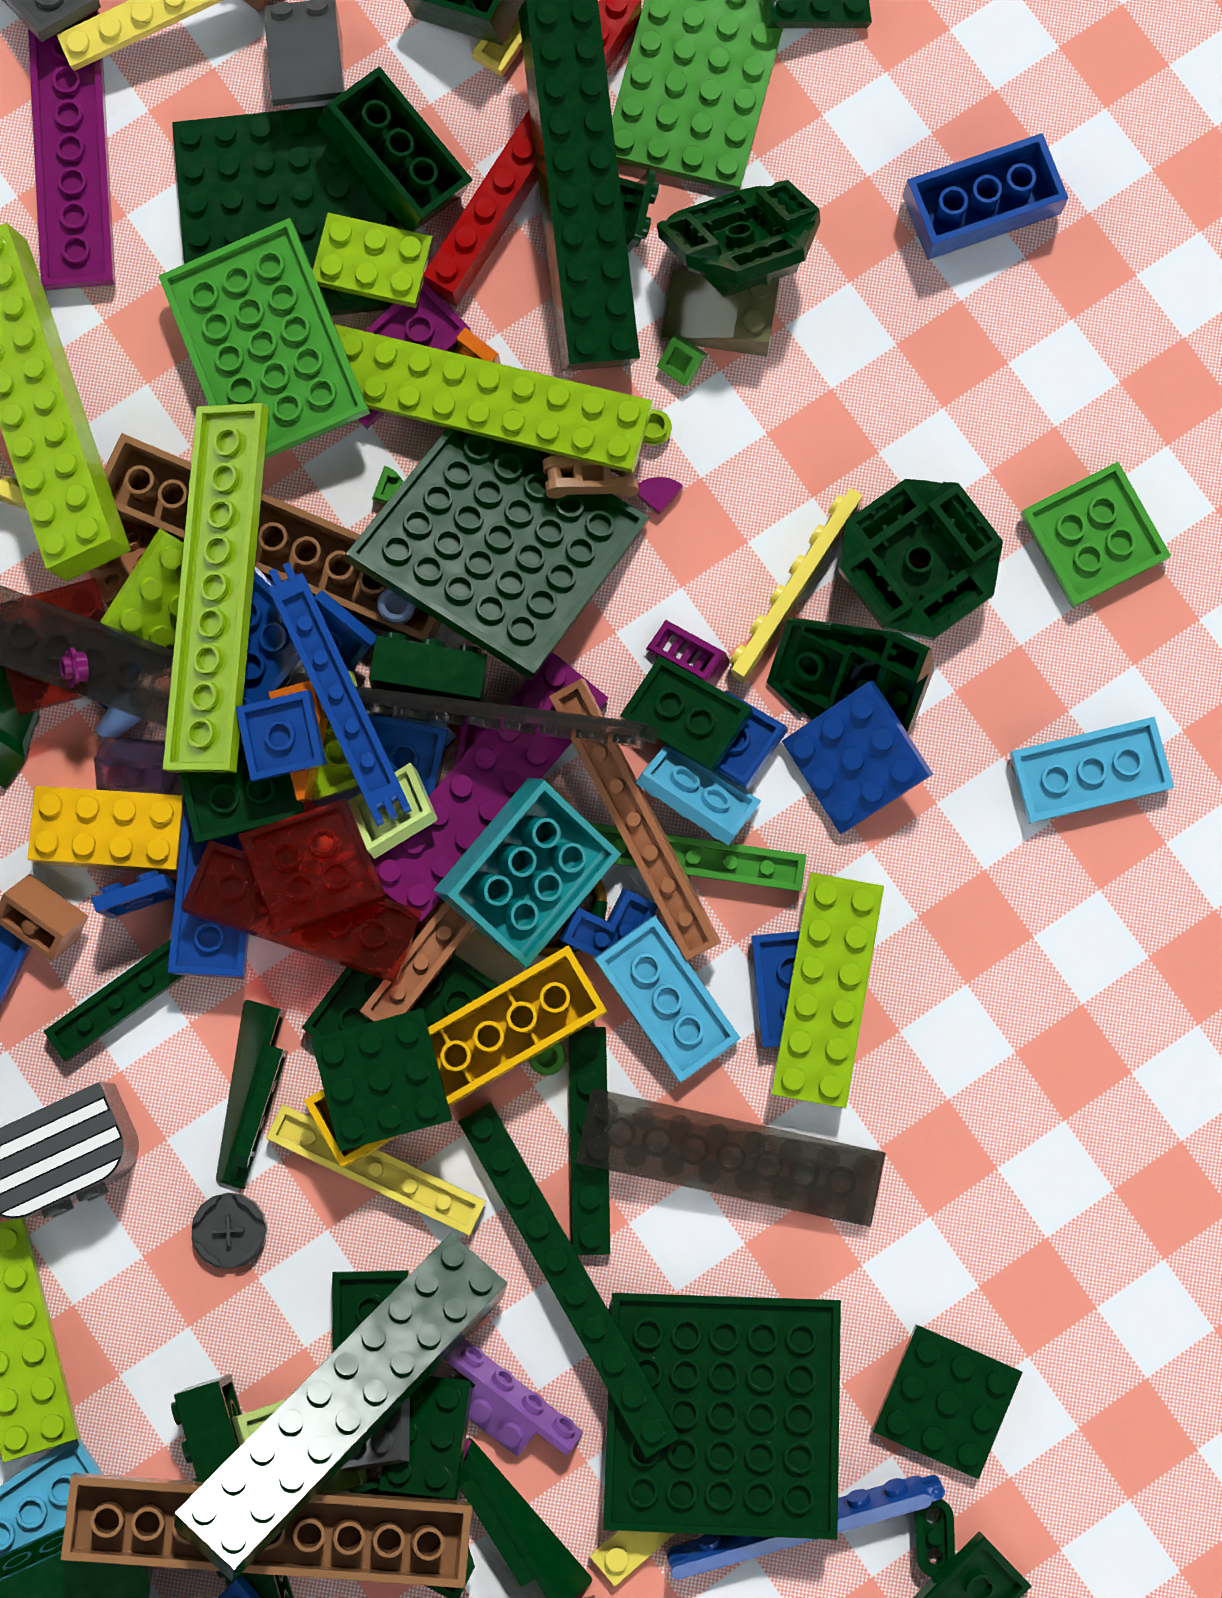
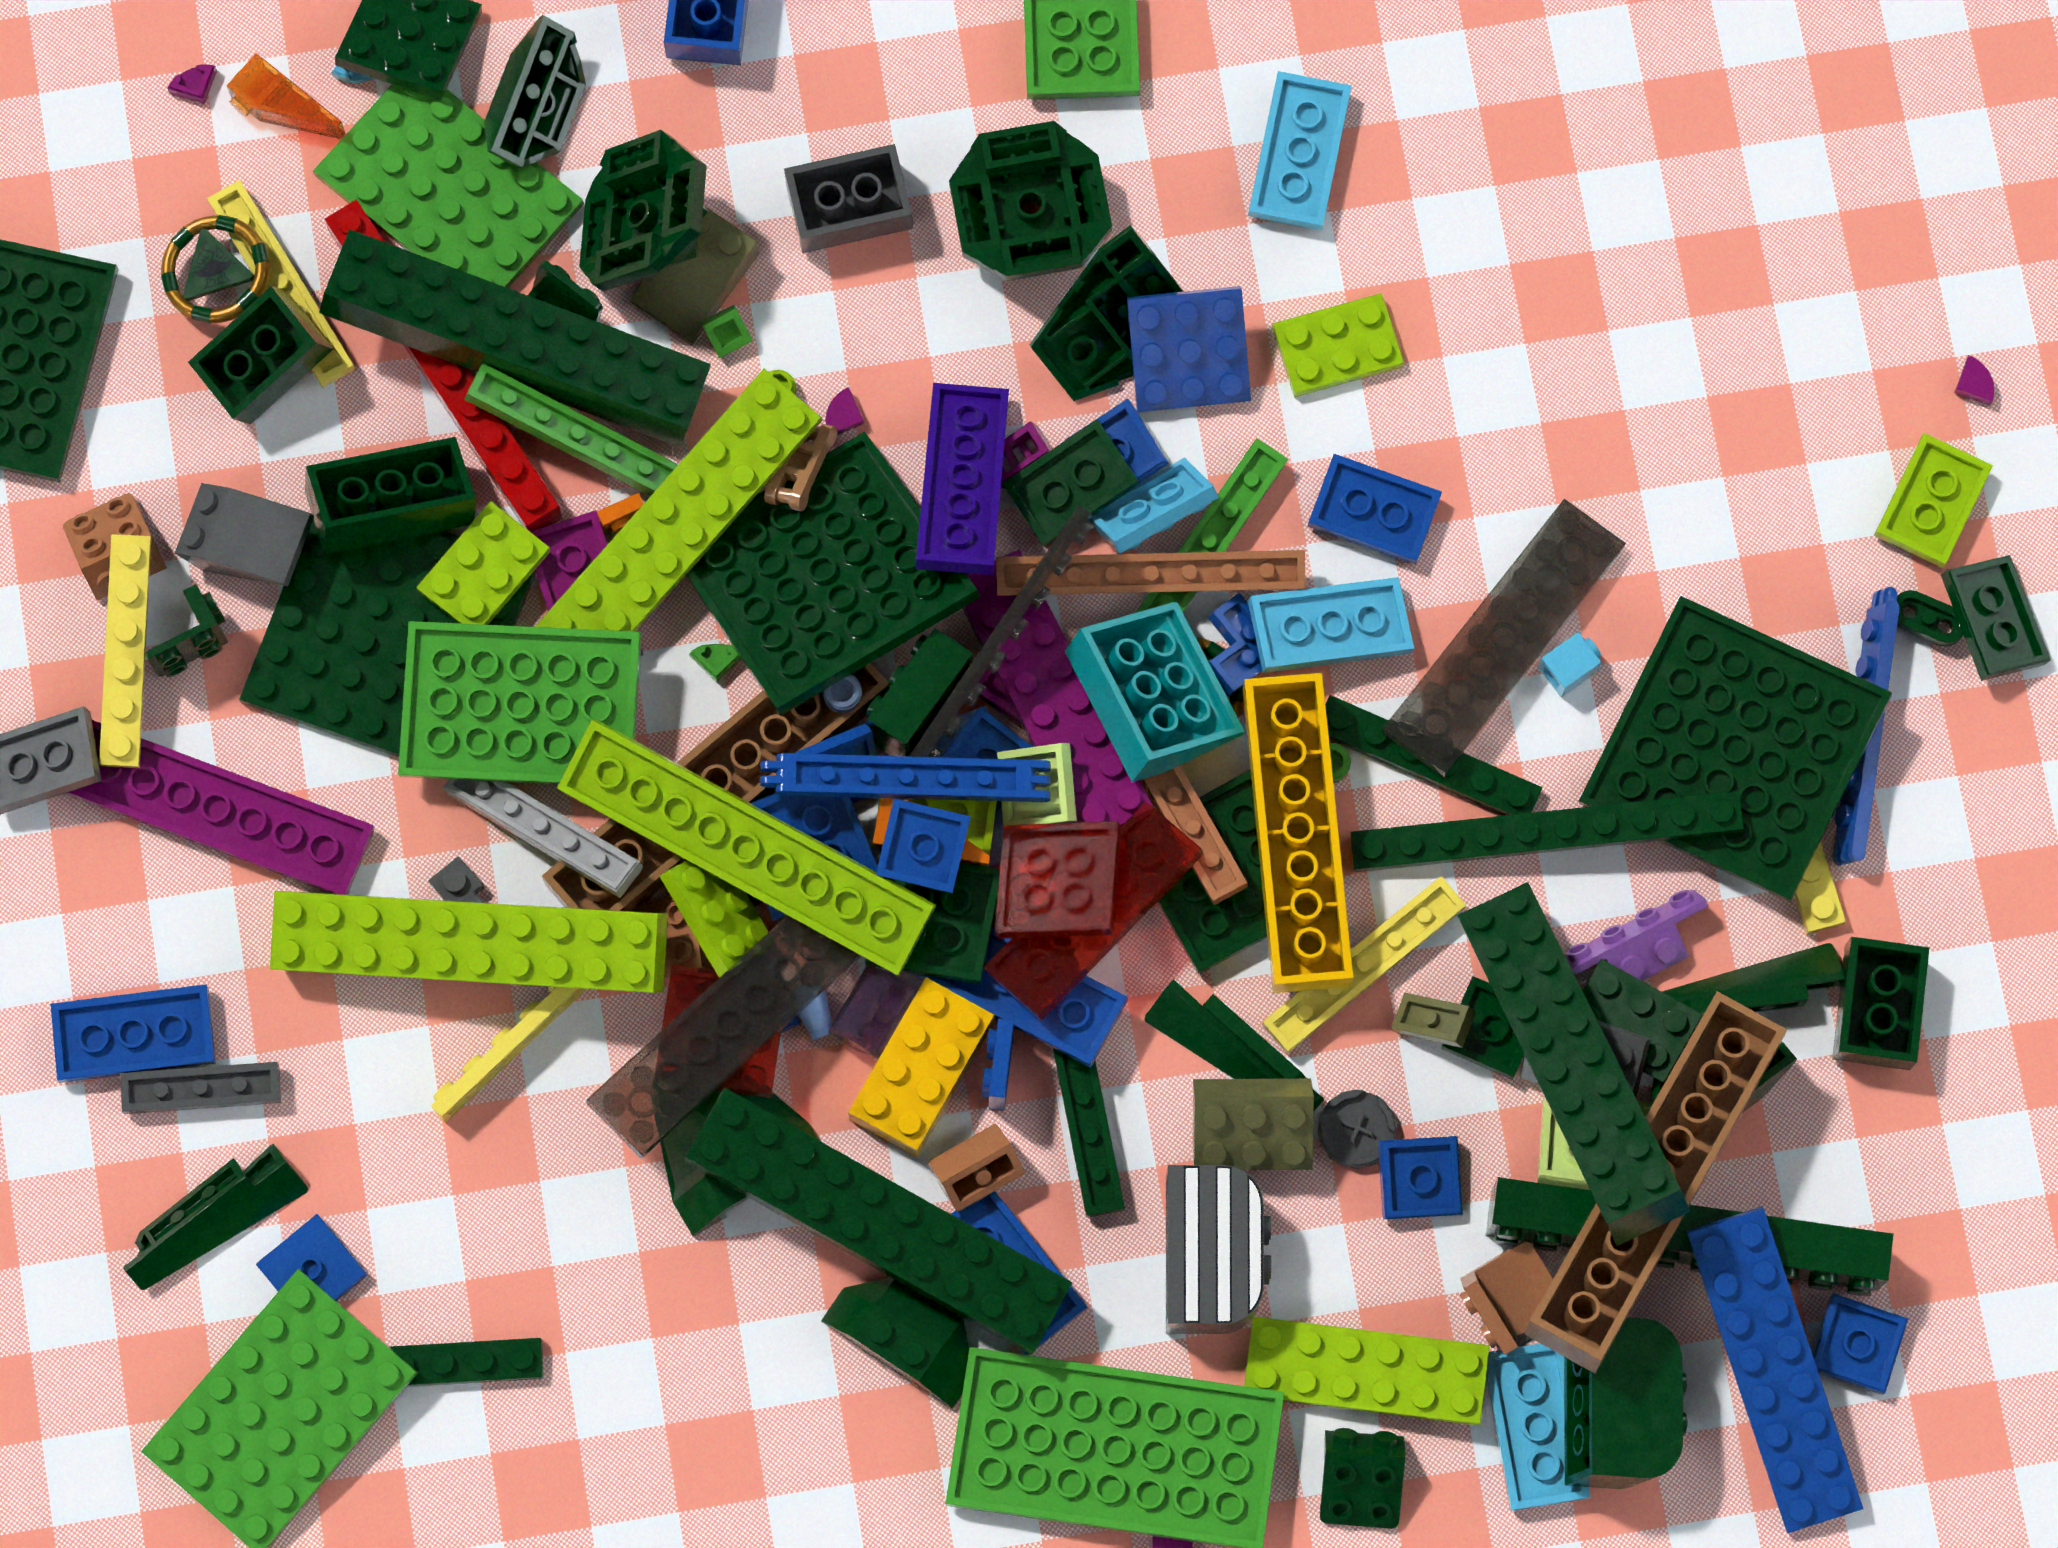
camera: 70 degrees left, 5 degrees down
(74, 667) = (760, 1010): magenta plate -> none
(95, 375) = (457, 883): none -> dark grey plate
(130, 1434) = (1506, 1293): none -> nougat bracket
(161, 426) = (548, 832): none -> light grey tile
(181, 1138) = (1253, 1123): none -> olive brick
(207, 1306) = (1420, 1177): none -> blue plate
(211, 65) = (200, 641): none -> dark green bracket
(349, 1254) = (1433, 1020): none -> olive plate
(381, 1079) = (1290, 902): dark green plate -> none
(523, 267) = (568, 430): none -> bright green plate
(636, 617) = (962, 479): none -> dark purple plate
(735, 1228) = (1570, 663): none -> medium azure brick
(786, 597) = (1004, 342): light yellow plate -> none
(808, 104) = (536, 96): none -> dark green wedge
(827, 990) = (1392, 476): lime plate -> none
(848, 403) = (848, 198): none -> dark grey brick
(930, 886) = (1337, 345): none -> lime plate
(947, 1401) = (1813, 552): dark green plate -> none
(1049, 1491) = (1933, 500): none -> lime plate
(1181, 1480) = (1975, 382): none -> magenta tile

